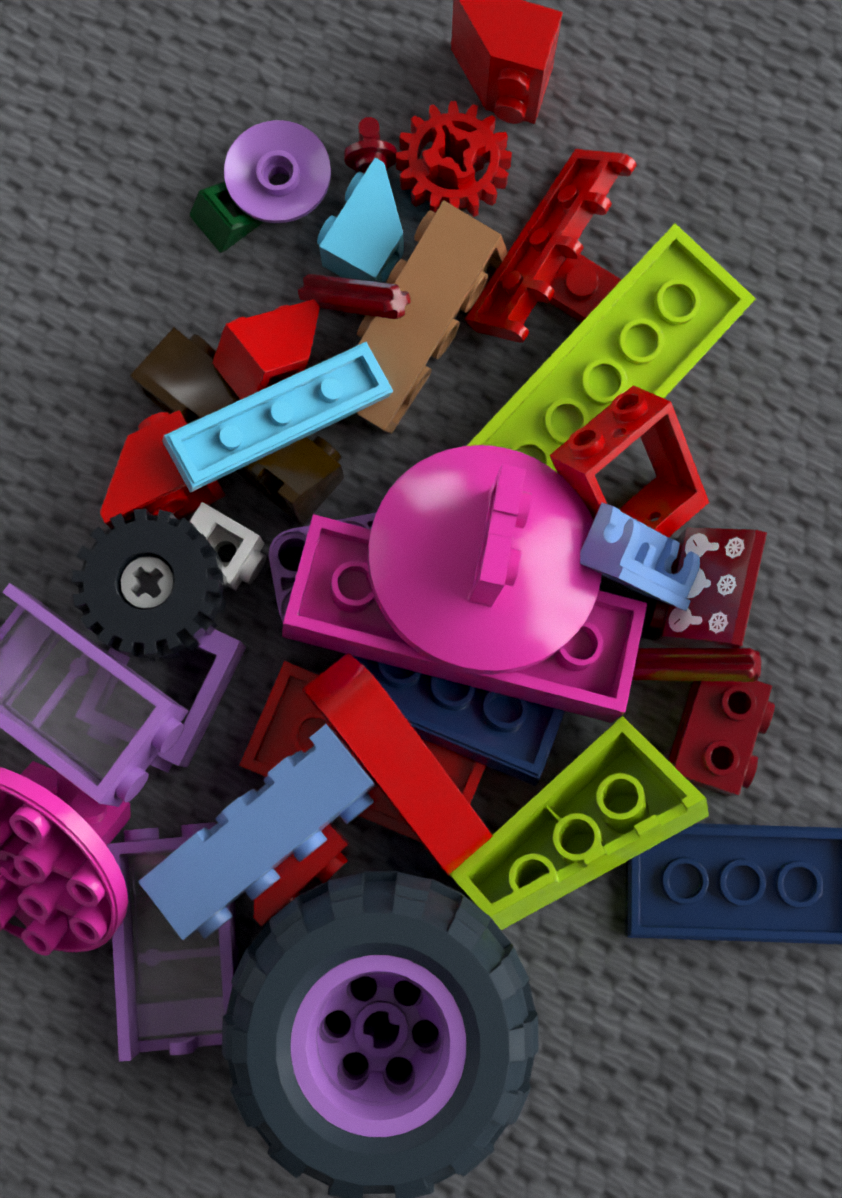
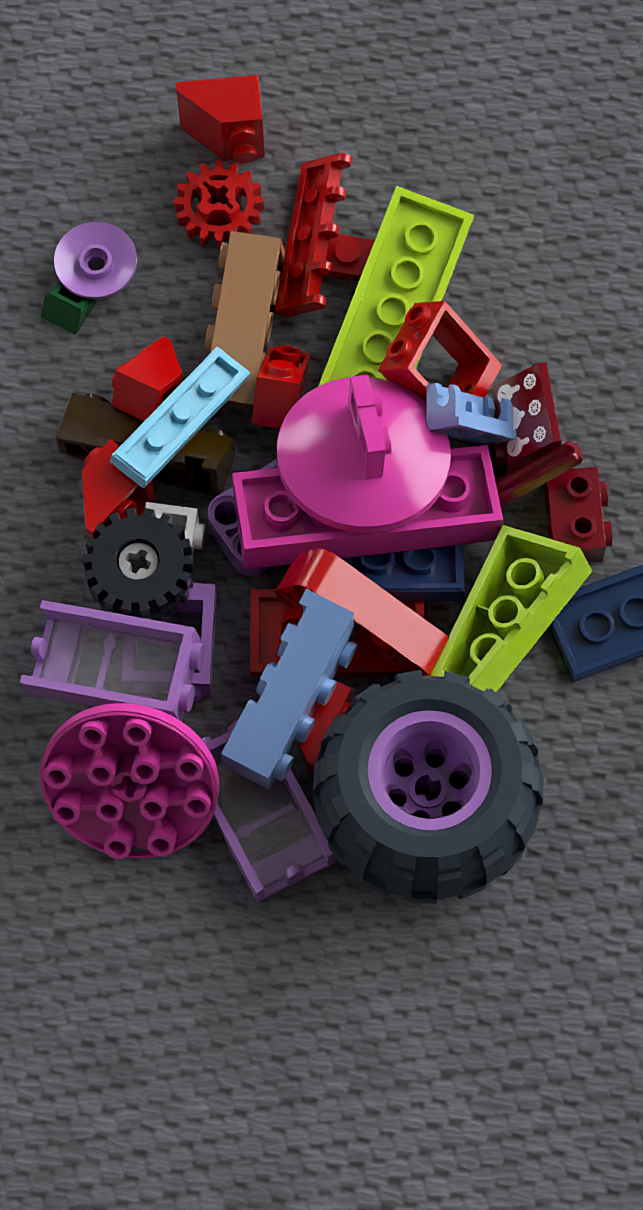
camera: 20 degrees left, 10 degrees down
(355, 296) = (193, 320): dark red axle -> none
(362, 153) = (157, 223): dark red plate -> none
(367, 233) = (180, 277): medium azure slope -> none
(428, 416) = (279, 385): none -> red slope

